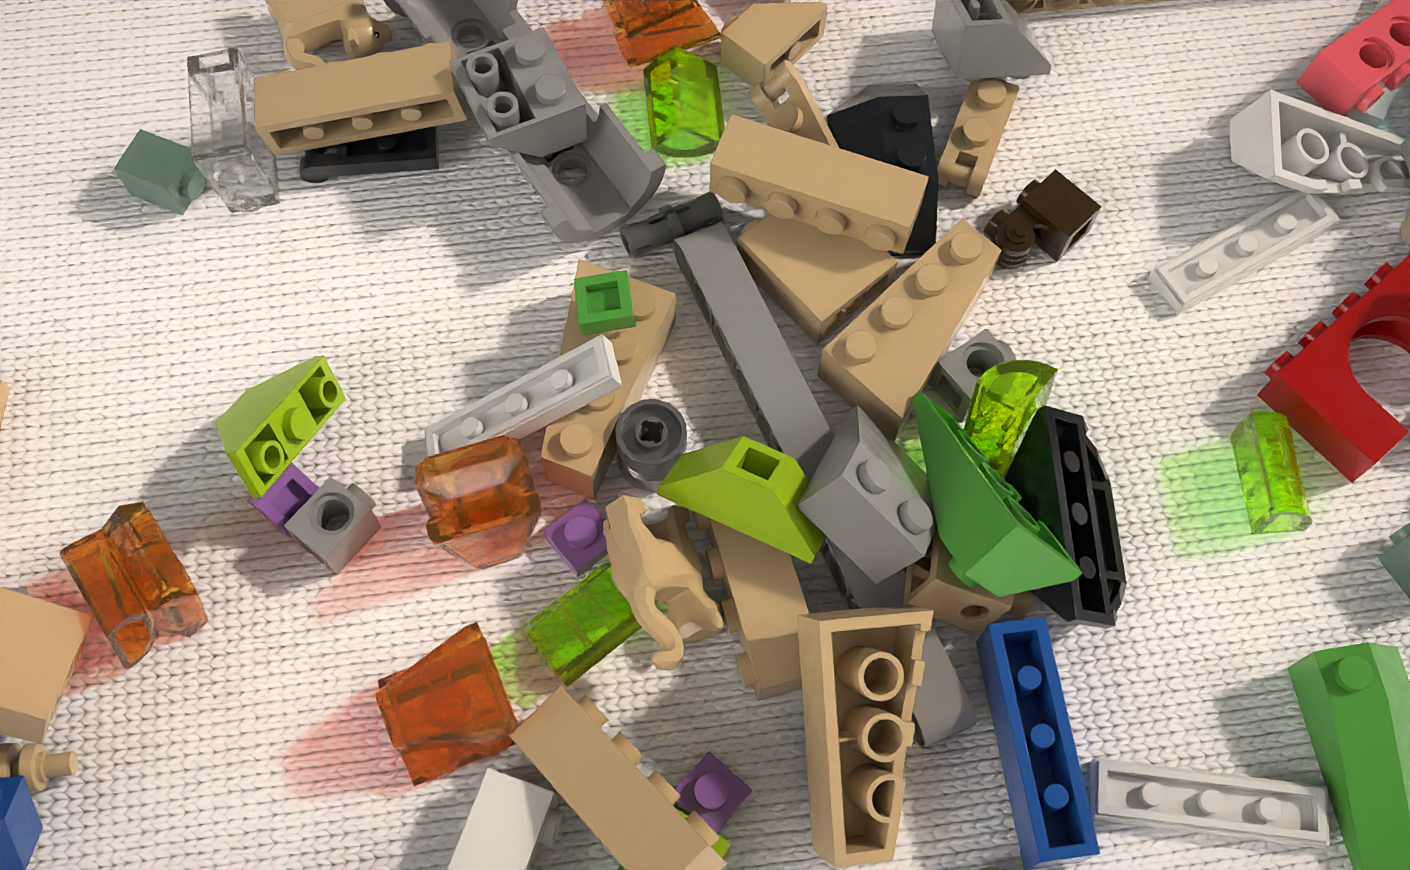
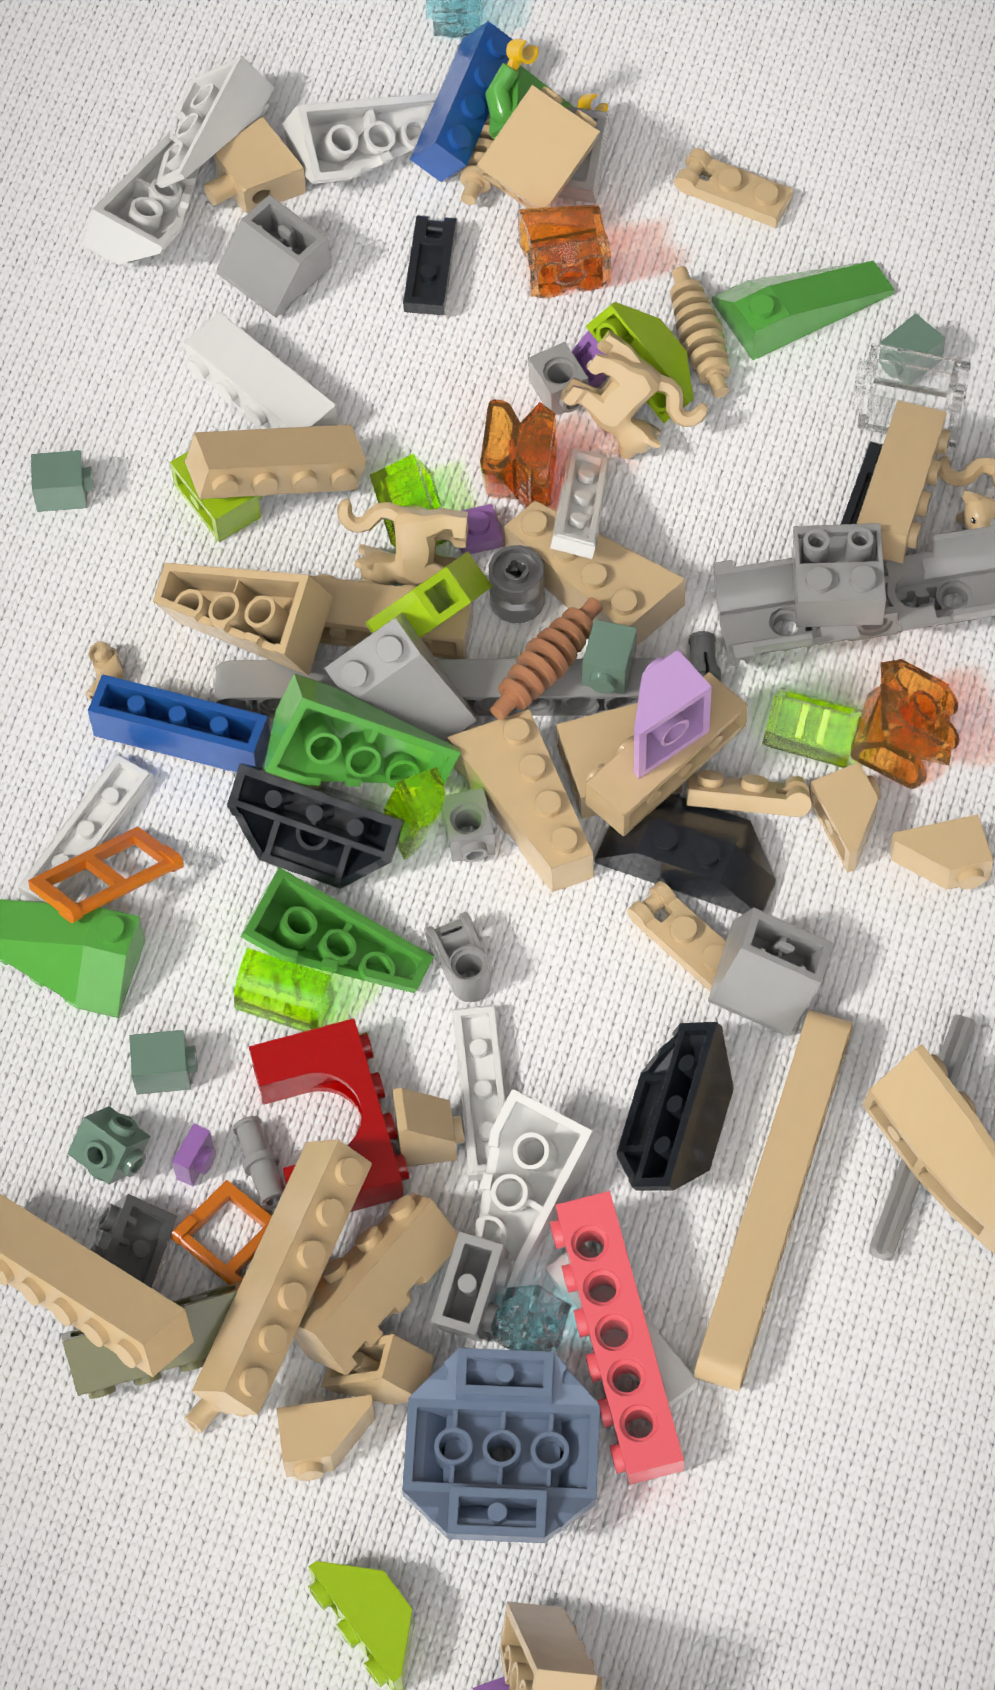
camera: 120 degrees right, 5 degrees down
(127, 322) = (790, 306): none -> bright green wedge
(185, 410) = (700, 331): none -> tan piece
(197, 767) = (430, 265): none -> black plate
(348, 415) = (628, 388): none -> tan animal
(447, 707) = (393, 403): clear orange piece -> none
(604, 302) = (627, 566): bright green plate -> none
(712, 792) = (258, 540): medium lavender plate -> none
(714, 339) = (546, 658): none -> nougat piece
(724, 286) = (609, 657): none -> sand green brick
(817, 144) = (670, 711): none -> lavender slope
(1048, 215) = (577, 944): dark brown brick -> none
(1122, 323) = (458, 951): none -> light grey piece
(1185, 63) = (677, 1110): none -> black wedge
(1203, 463) = (322, 933): none -> bright green wedge
(1339, 262) = (426, 1128): none -> tan slope
(1366, 726) = (92, 860): none -> orange window

